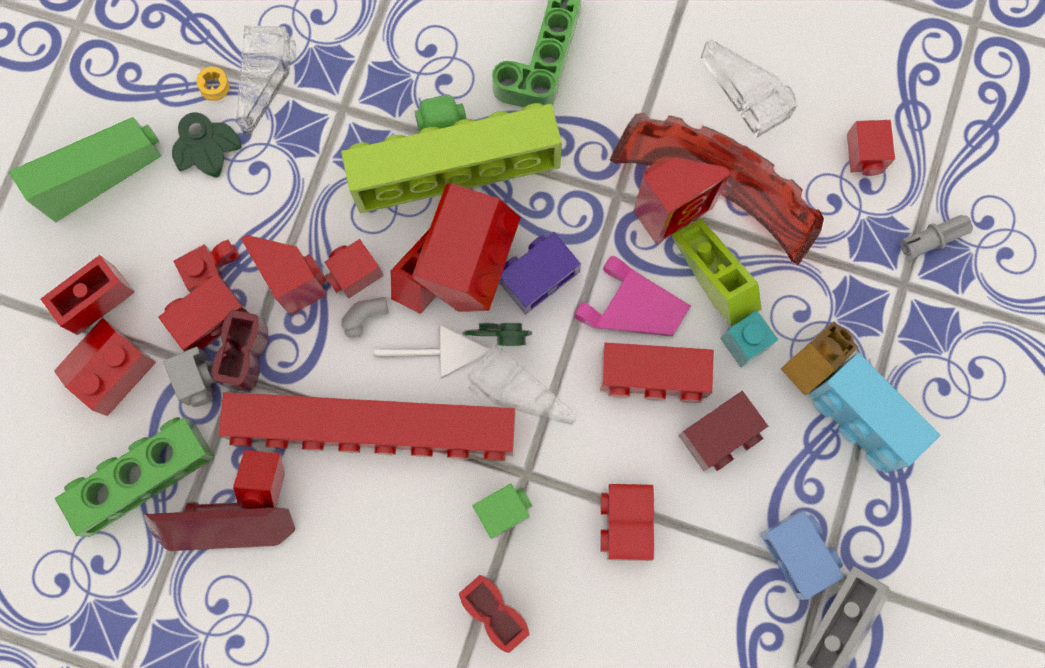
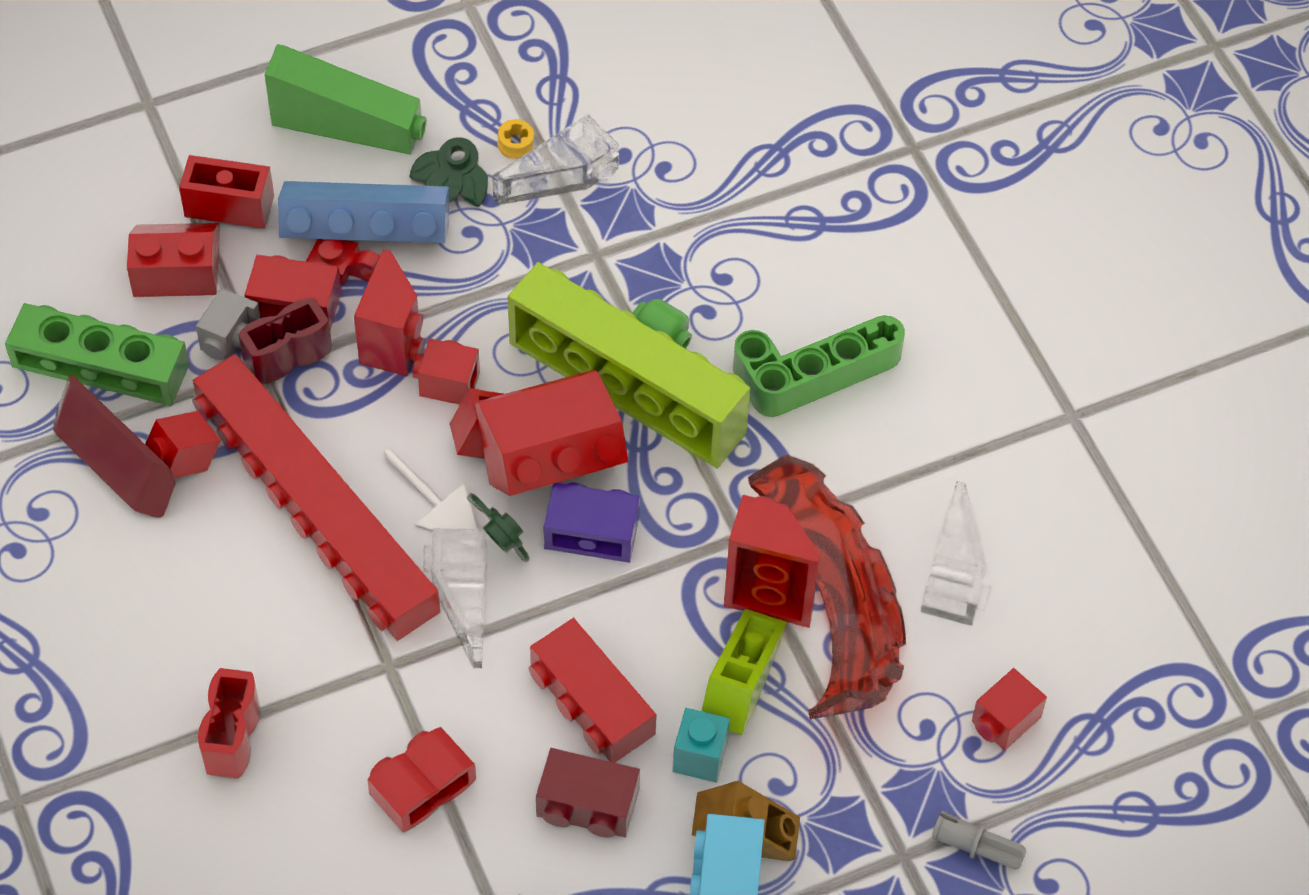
camera: 45 degrees right, 20 degrees down
(185, 222) = (363, 212): none -> medium blue brick
(359, 313) = (415, 411): light grey arm -> none
(503, 510) = (332, 659): bright green brick -> none
(637, 305) = (643, 631): dark pink flag -> none

